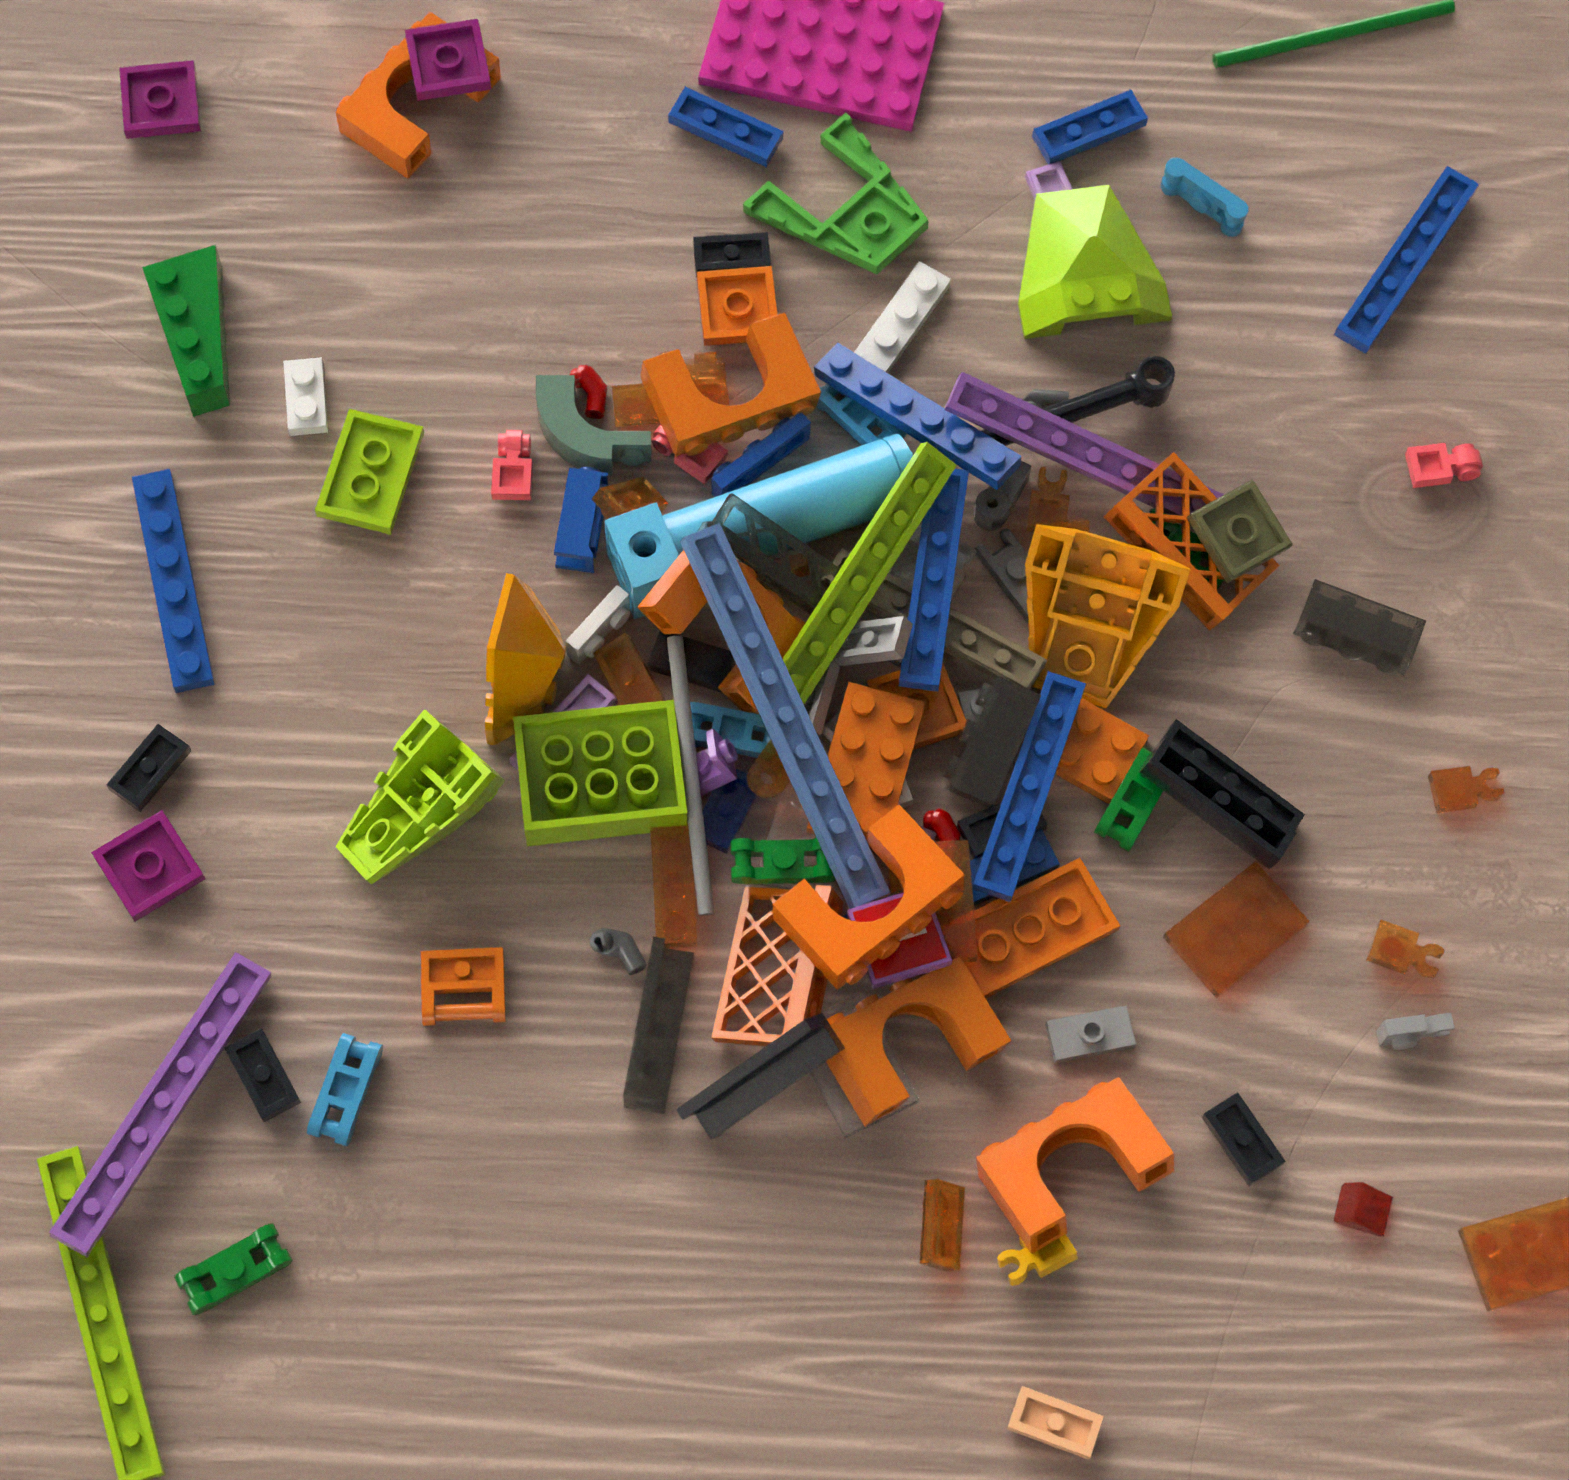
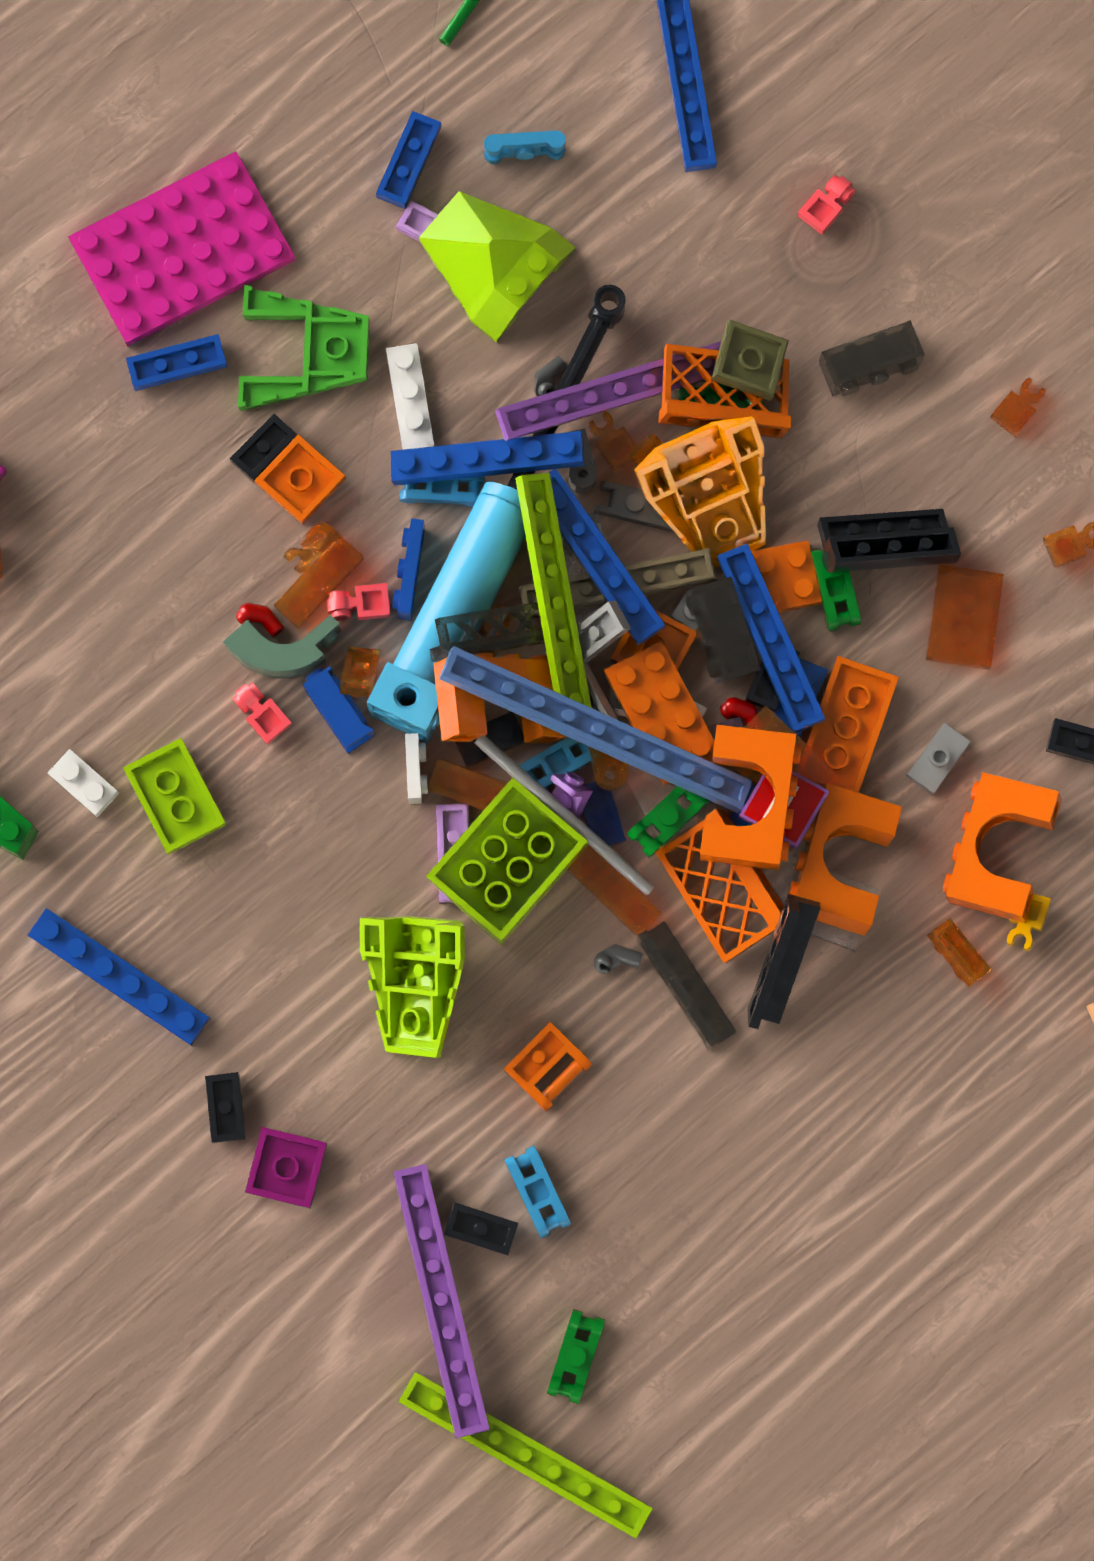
camera: 40 degrees left, 10 degrees up
(520, 659) = (402, 831): light orange wedge -> none
(696, 422) = (352, 584): orange arch -> none

